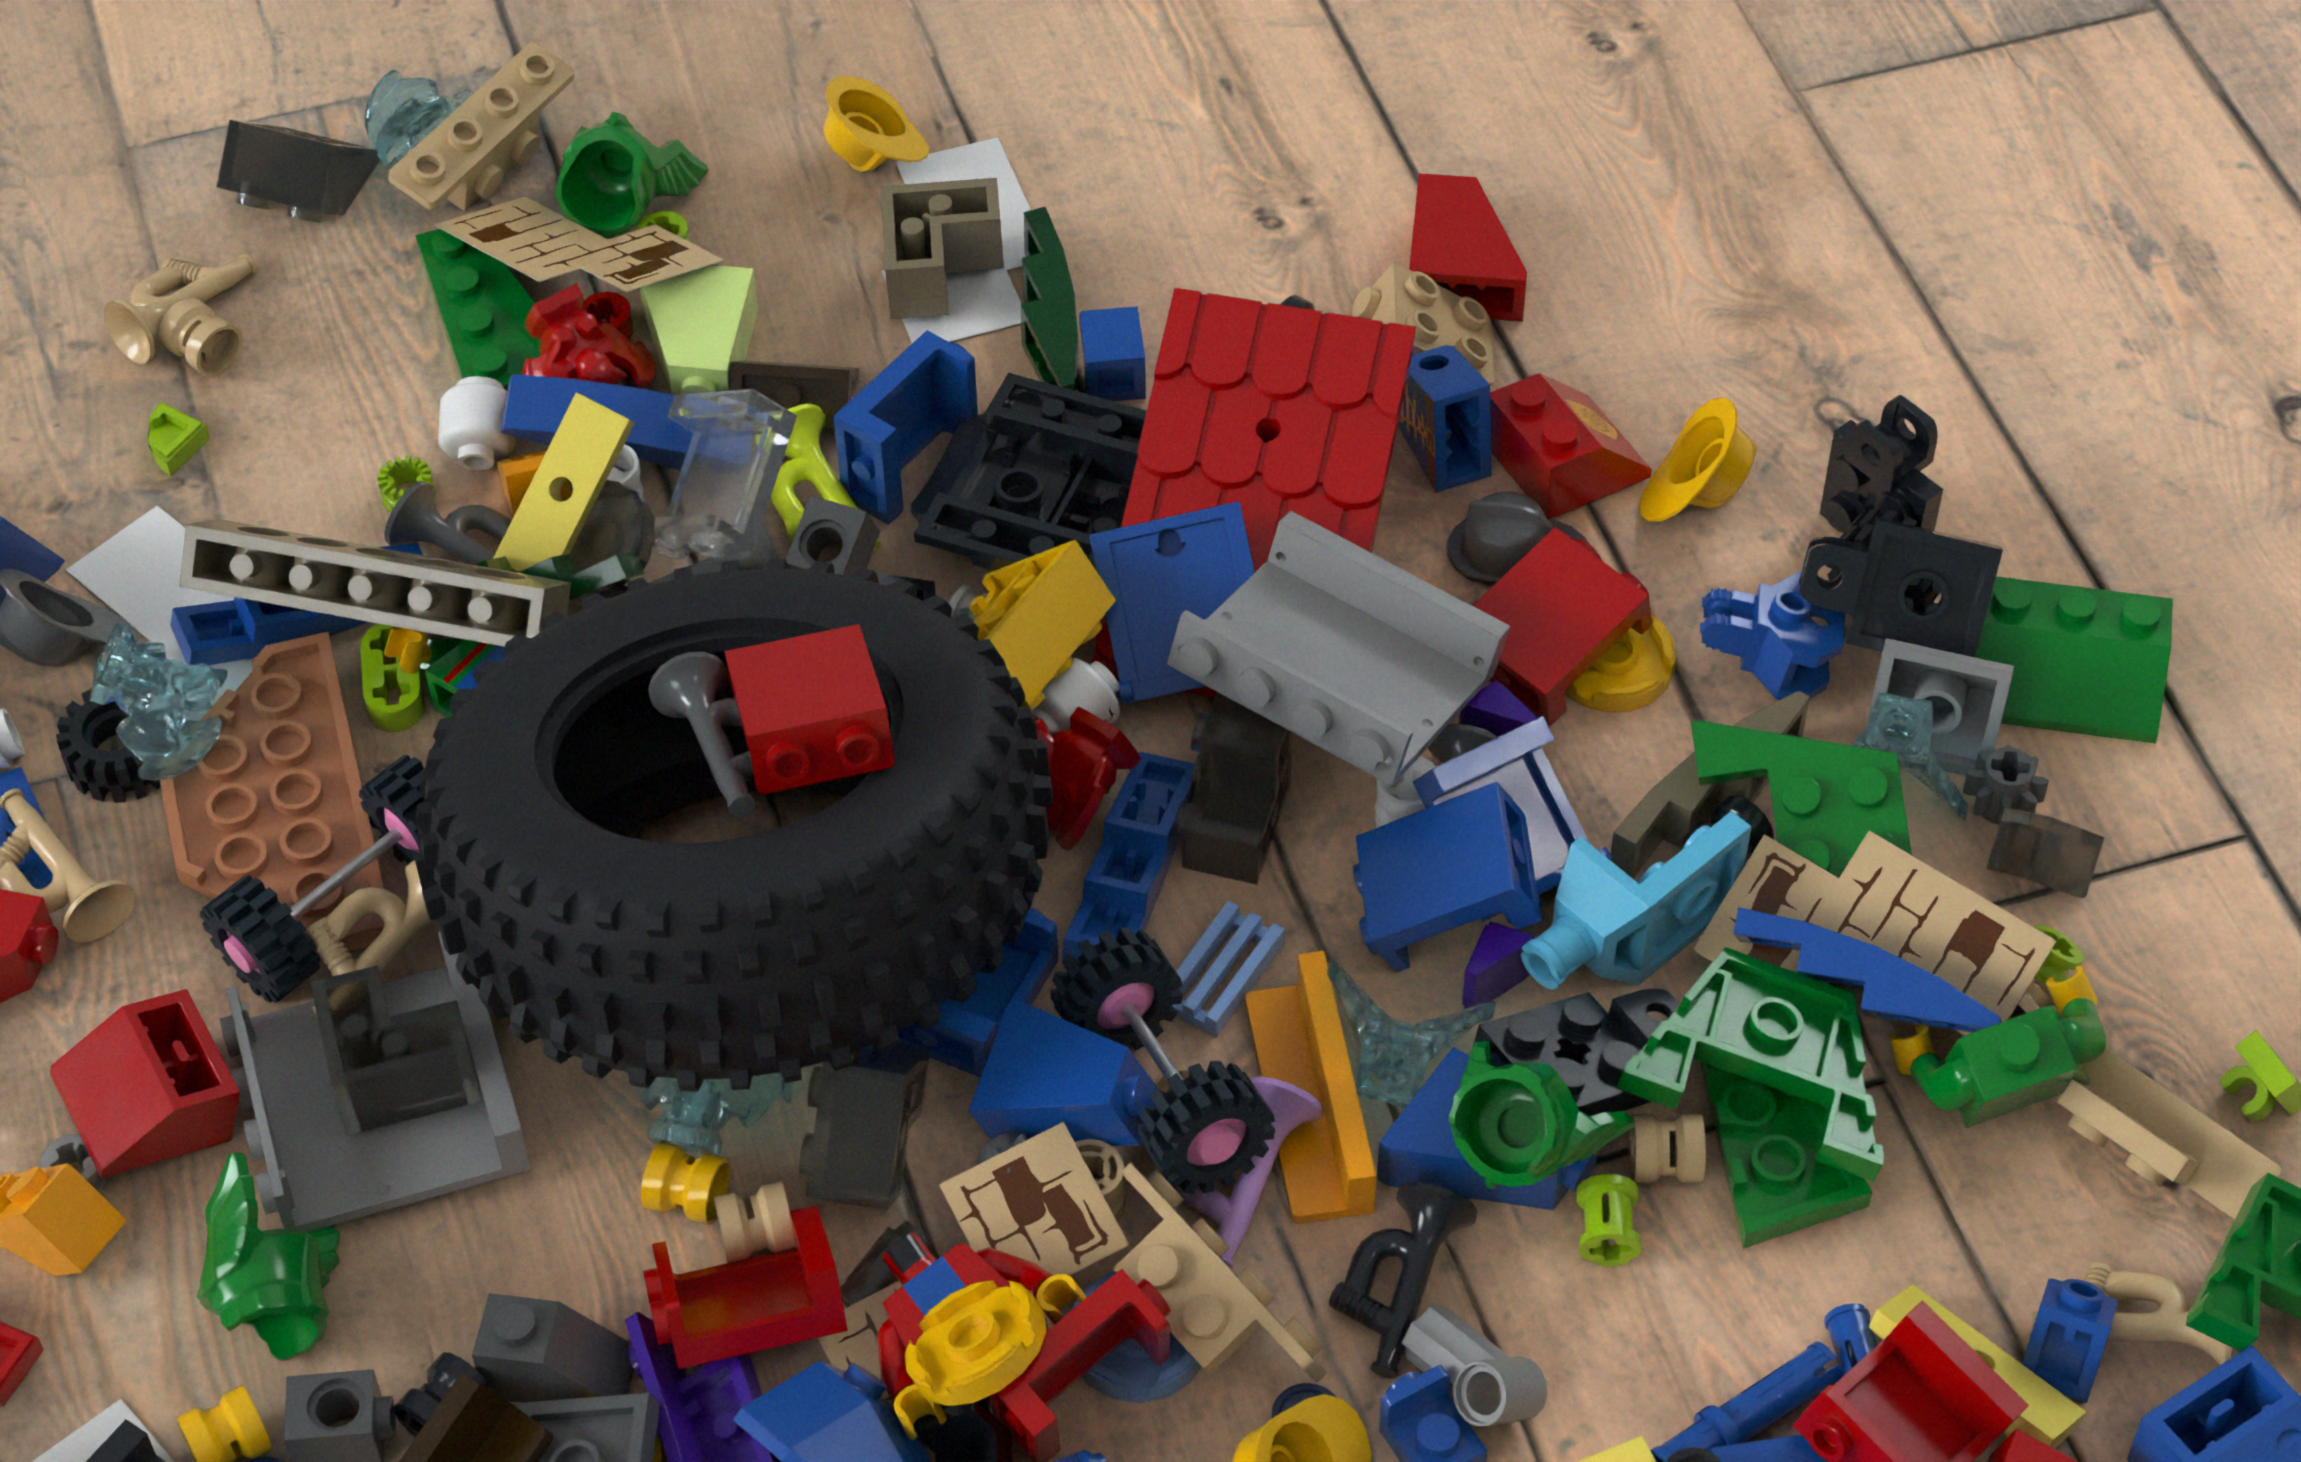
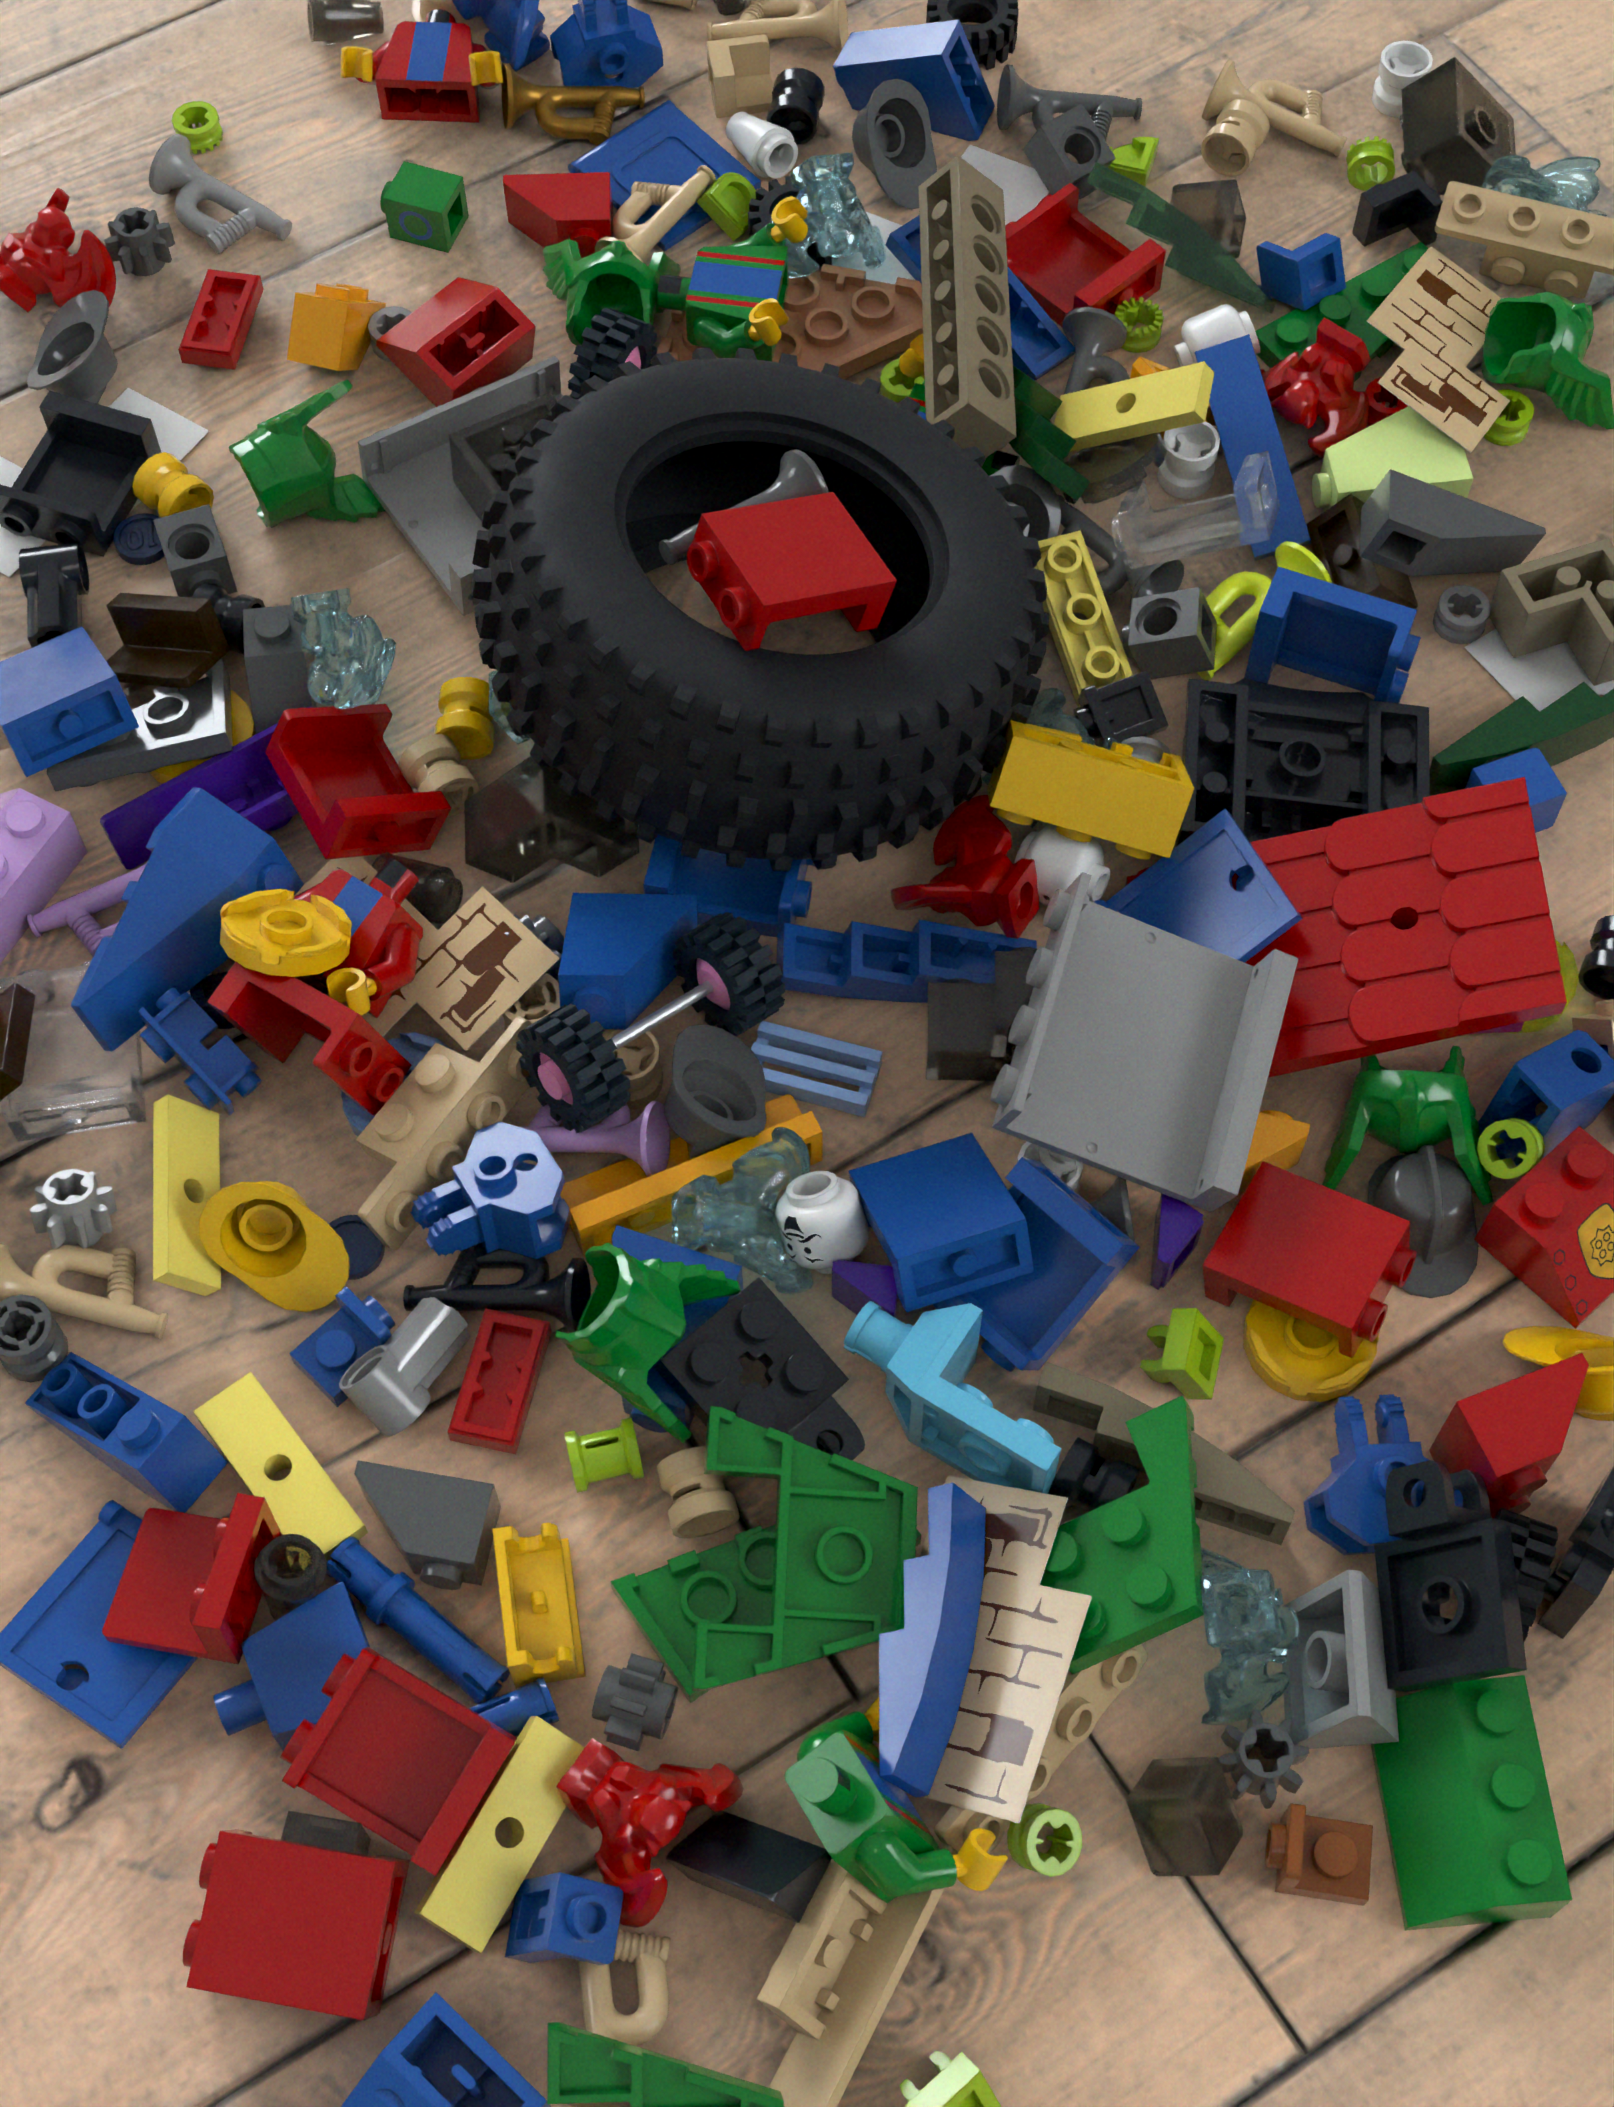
camera: 75 degrees right, 10 degrees up
(42, 505) = (1020, 98): none -> dark grey piece
(56, 793) = (728, 203): none -> lime tile
(148, 930) = (603, 281): none -> green helmet
(157, 472) = (1074, 134): none -> dark grey brick
(191, 180) = (1399, 67): none -> white wheel
(233, 794) = (739, 288): none -> torso
(293, 243) = (1370, 153): none -> lime bush
(303, 390) = (1216, 208): none -> clear smoke panel
(324, 498) = (1076, 263): none -> red panel
(344, 404) = (1193, 249): none -> clear green slope
(371, 224) = (1398, 206): none -> black bracket
(424, 337) = (1304, 274): none -> blue panel
(586, 1249) = (348, 650): none -> clear light blue animal
(800, 315) = (1439, 532): none -> dark grey slope
(882, 322) = (1458, 600): none -> light grey bush
(1255, 1036) = (714, 1090): none -> dark grey piece
(1312, 1242) = (498, 1197): none -> blue hinge
(1415, 977) = (821, 1221): none -> white head
(1427, 512) = (1408, 1112): none -> green helmet
(1505, 1297) = (500, 1381): none -> red plate
(1508, 433) = (1506, 1167): none -> lime bush
(1616, 739) = (1189, 1353): none -> lime tile
(1649, 1378) = (434, 1521): none -> dark grey slope
(1752, 1312) = (538, 1605): none -> yellow hinge
(1765, 515) = (1513, 1432): none -> red slope
(1870, 1237) = (634, 1702): none -> dark grey gear
(1982, 1248) = (638, 1817): none -> red animal
(2042, 1169) = (752, 1864): none -> black slope
(2090, 775) = (1320, 1856): none -> dark orange bracket

